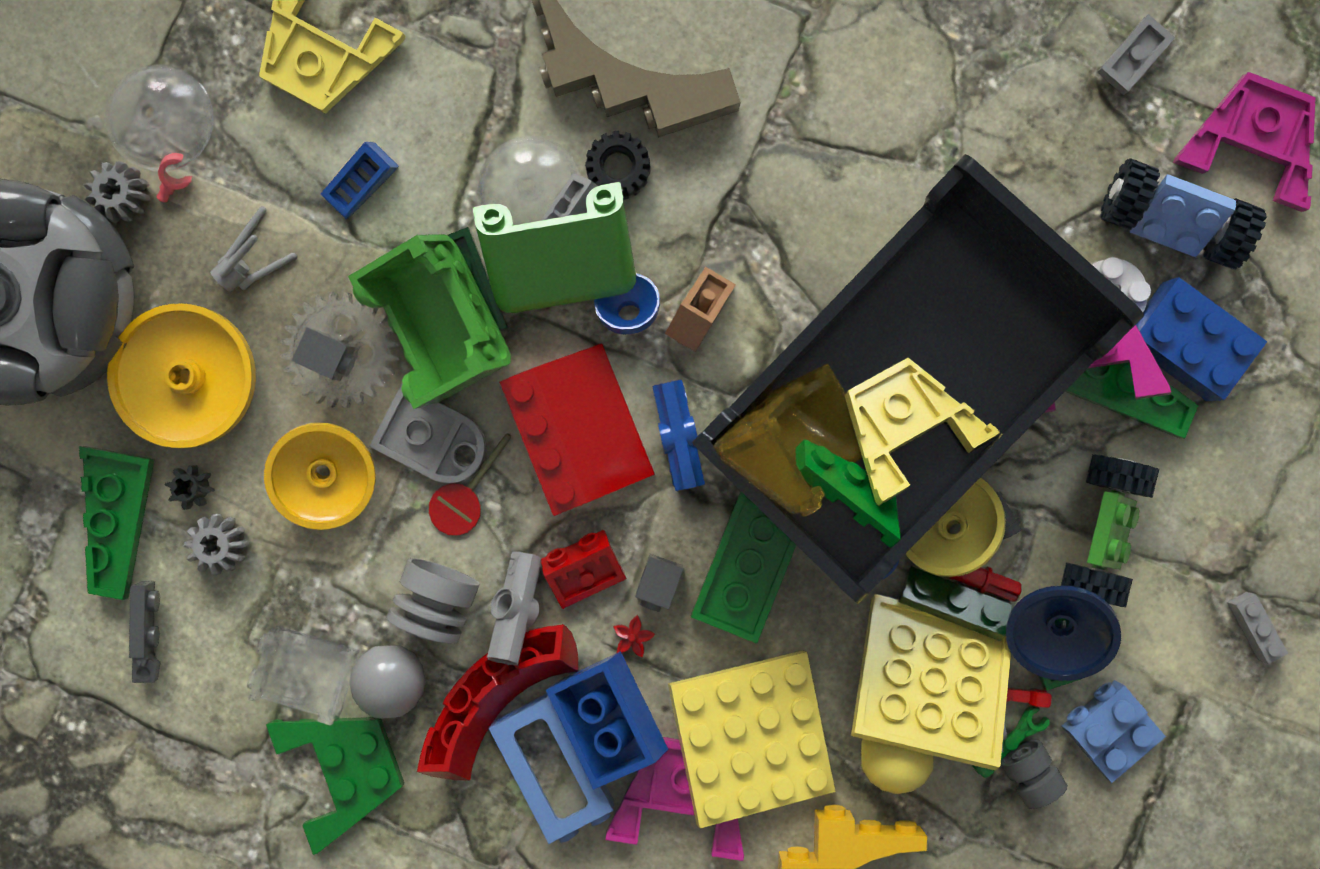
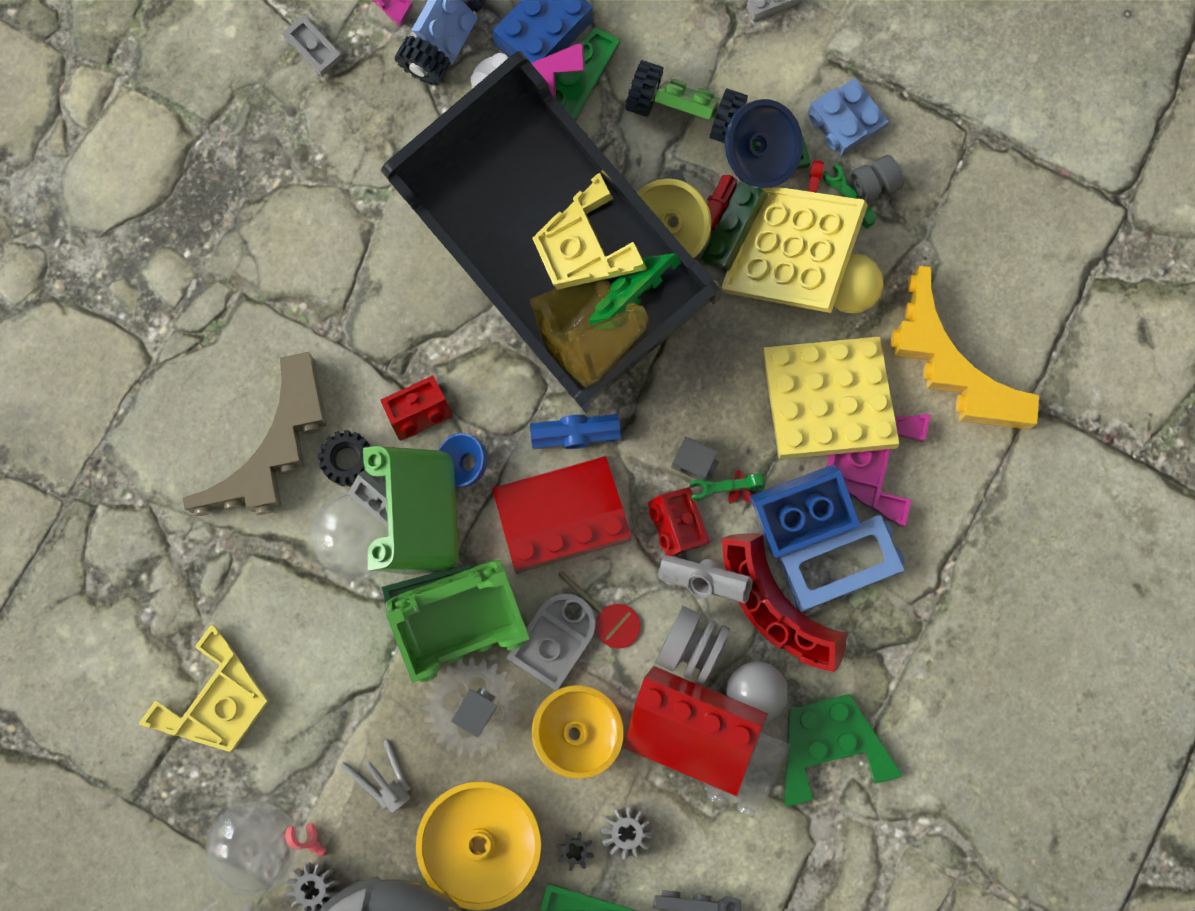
camera: 85 degrees left, 10 degrees down
(334, 616) = (694, 730): none -> red slope
(368, 188) = (311, 658): blue slope -> none
(630, 624) = (751, 482): none -> green piece
(688, 241) = (416, 408): none -> red bracket
(700, 309) = (474, 403): medium nougat slope -> none
(744, 573) = (689, 387): green plate -> none

